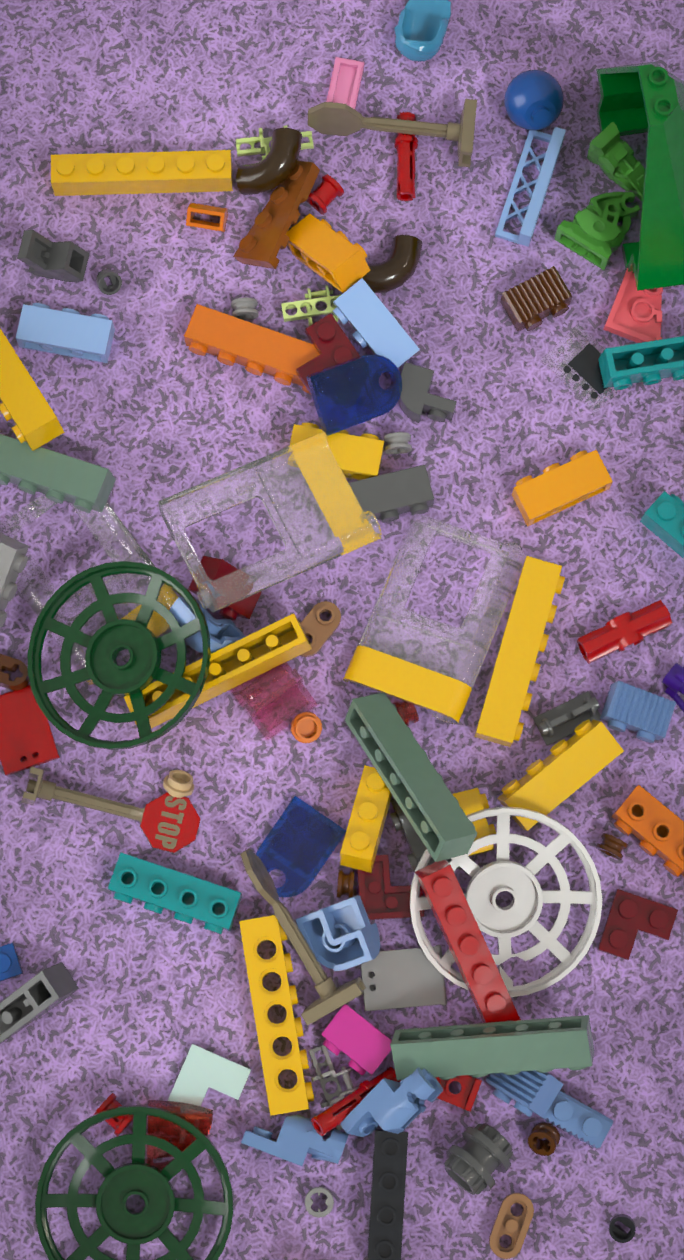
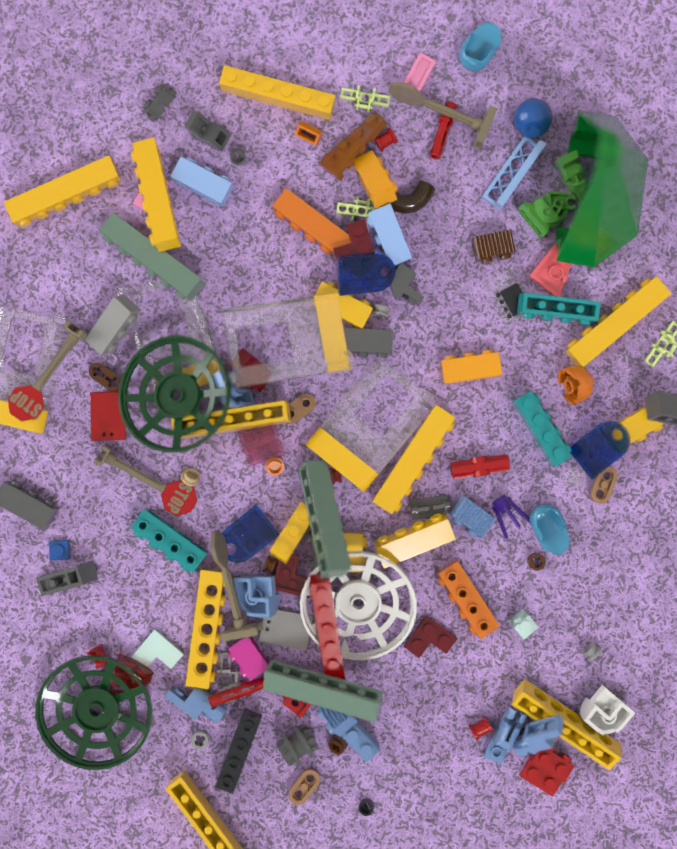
camera: 15 degrees right, 10 degrees up
(245, 308) = (314, 198): light grey bush -> none
(275, 167) = (360, 114): dark brown cylinder -> none
(393, 1104) = (257, 703): medium blue plate -> none
(612, 846) = (431, 590): reddish brown bush -> none

